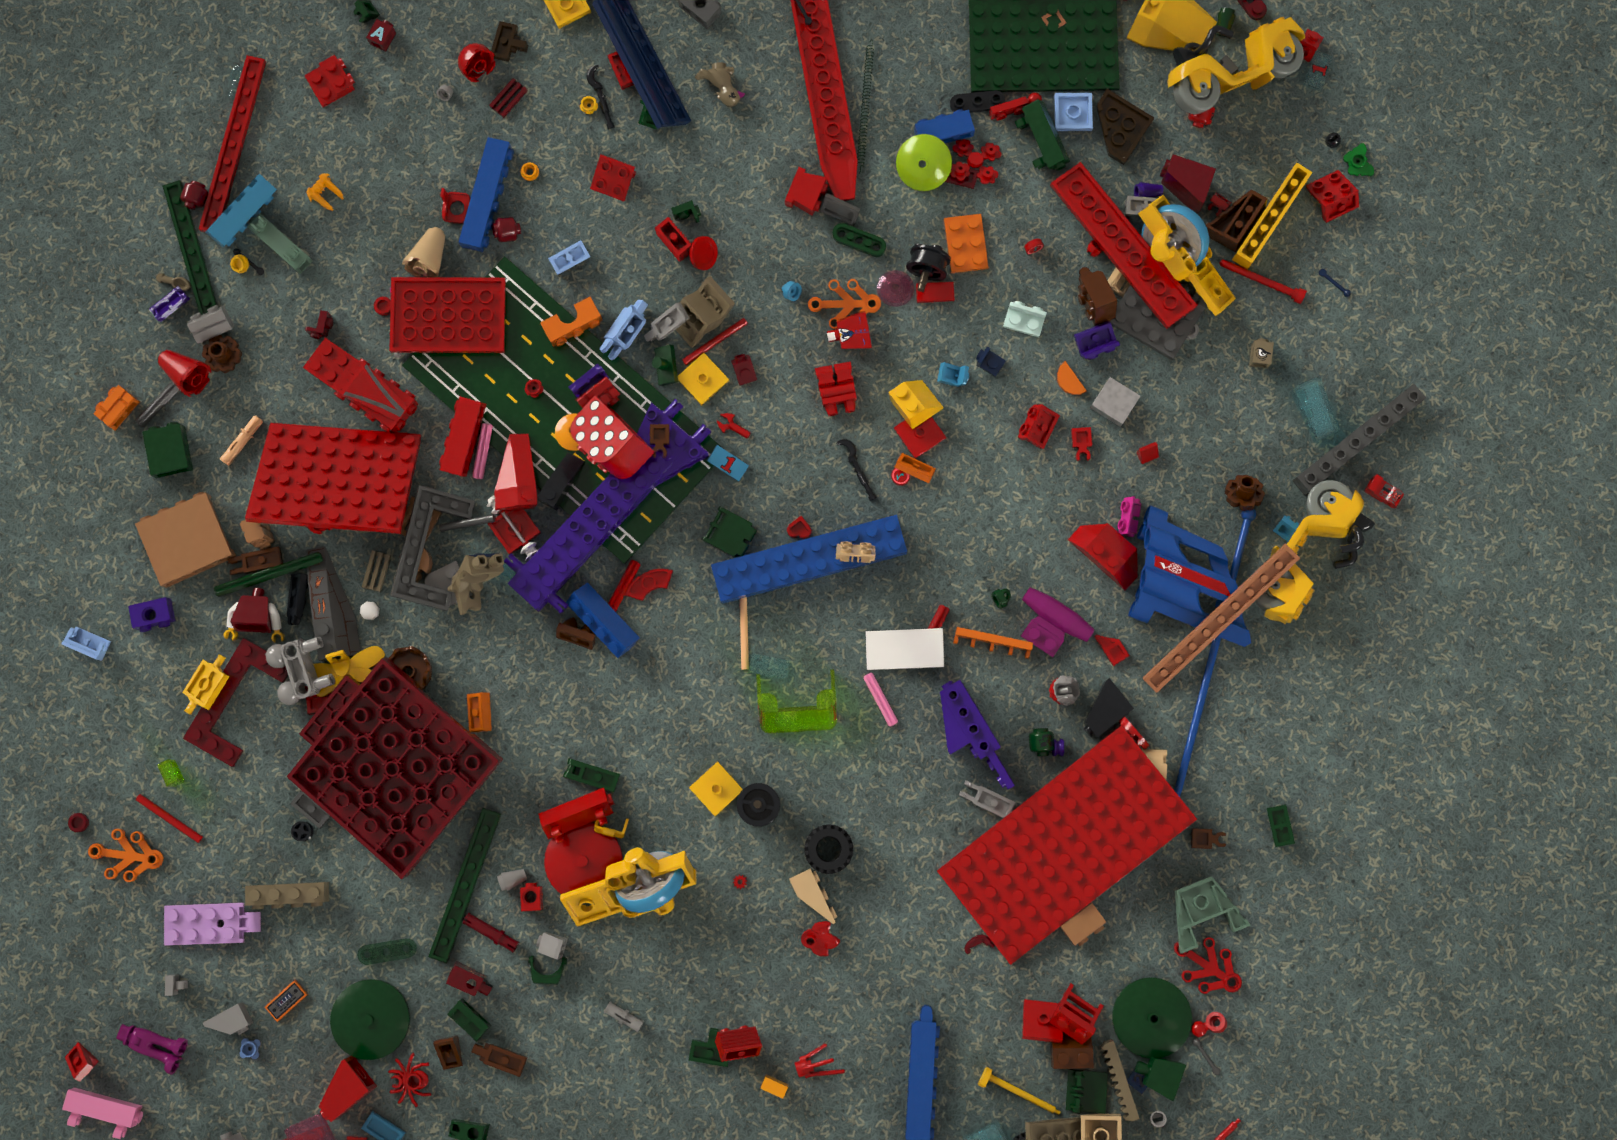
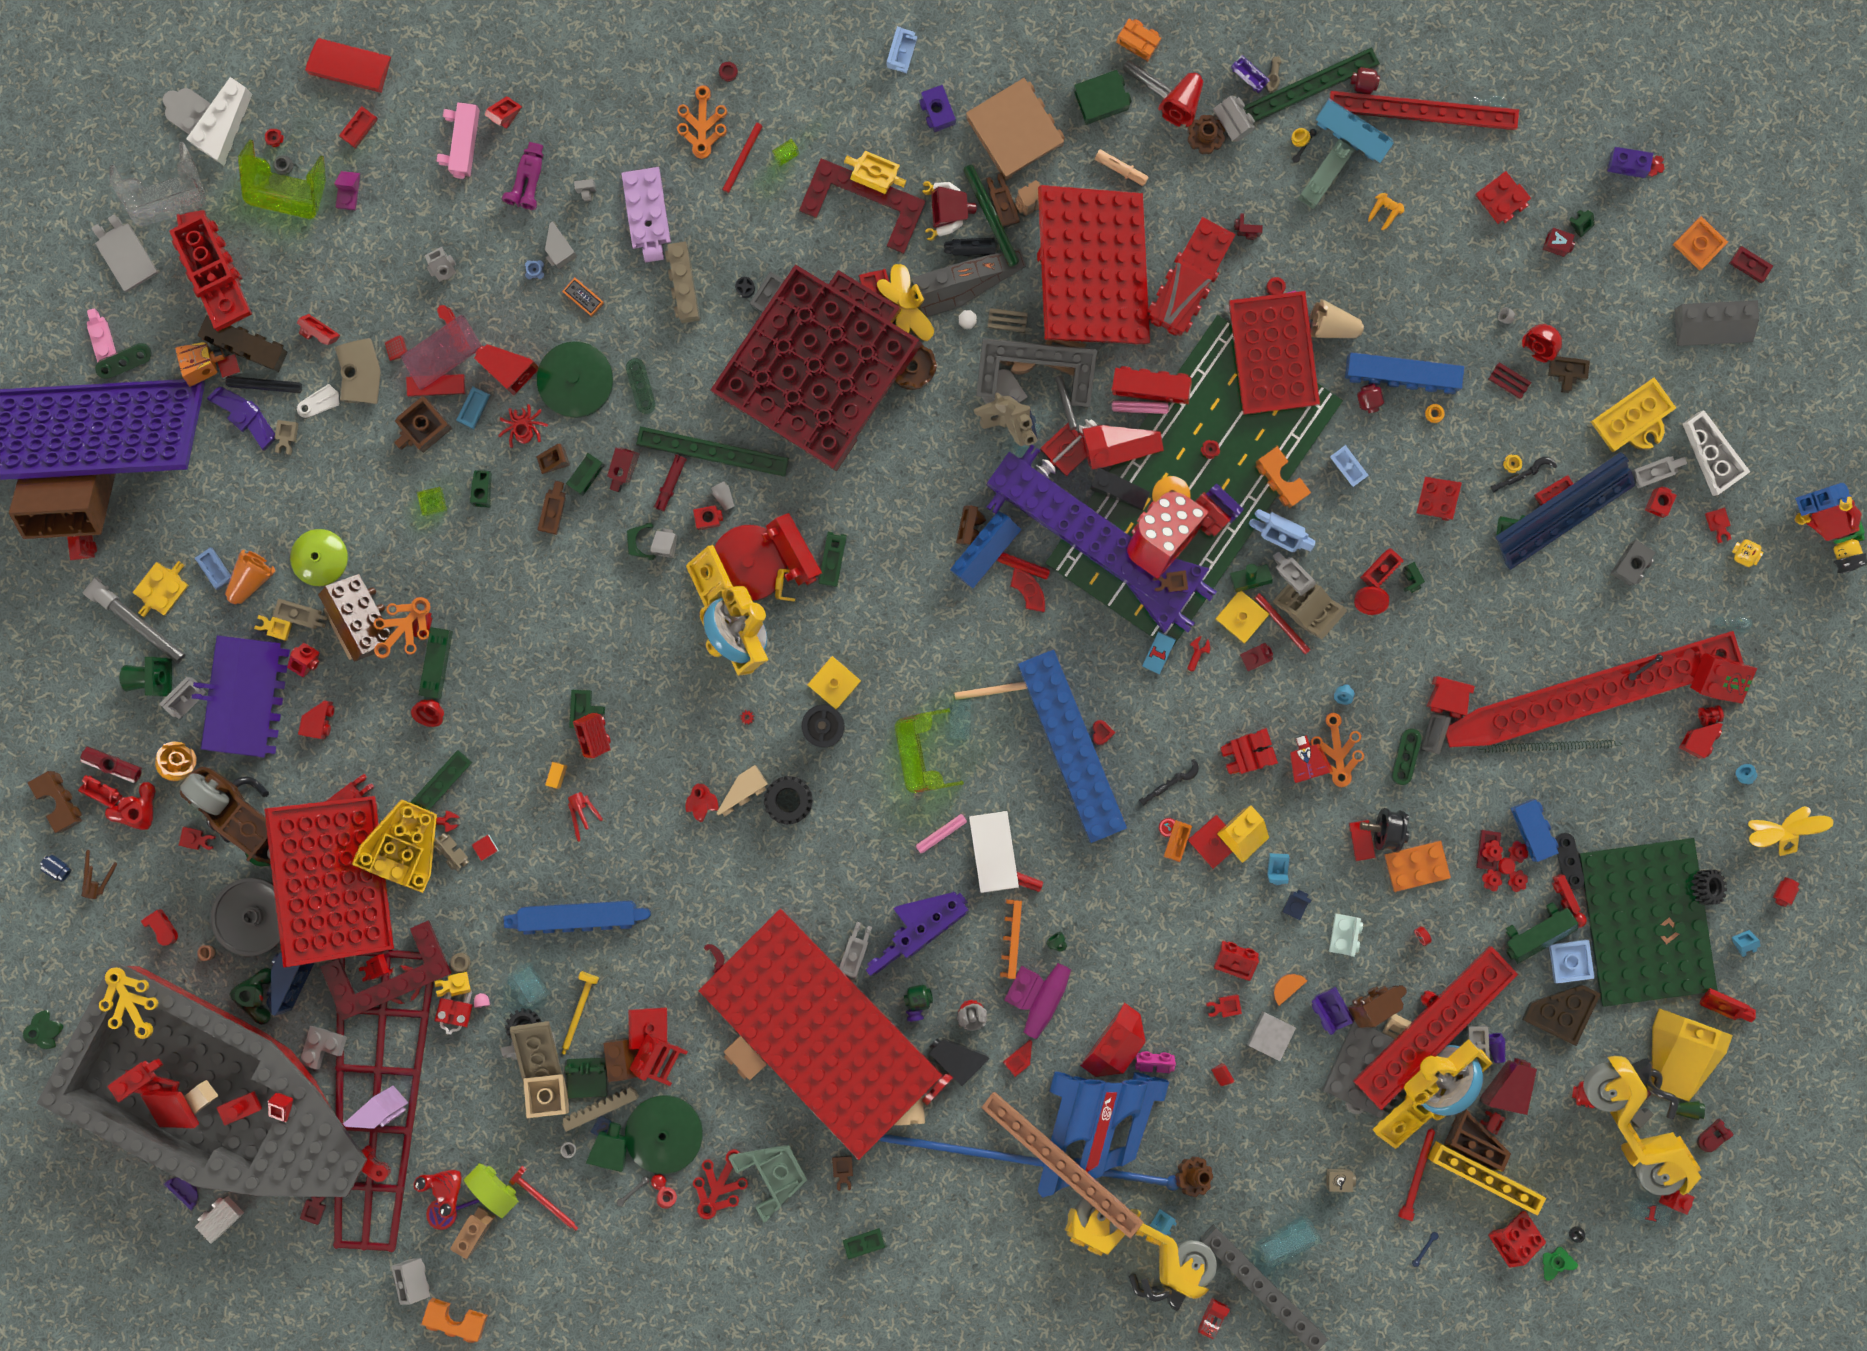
camera: 75 degrees right, 5 degrees up
(299, 669) = (900, 260): light grey piece -> none
(448, 200) = (1394, 335): red piece -> none
(479, 712) = (880, 441): orange slope -> none
(623, 1016) = (605, 621): light grey pin -> none
(721, 78) = (1558, 594): dark tan animal -> none
(730, 533) = (1088, 664): dark green plate -> none
(847, 549) = (1083, 784): tan hinge -> none
(891, 296) = (1351, 799): clear pink dish -> none
(937, 160) = (1509, 816): lime dish -> none

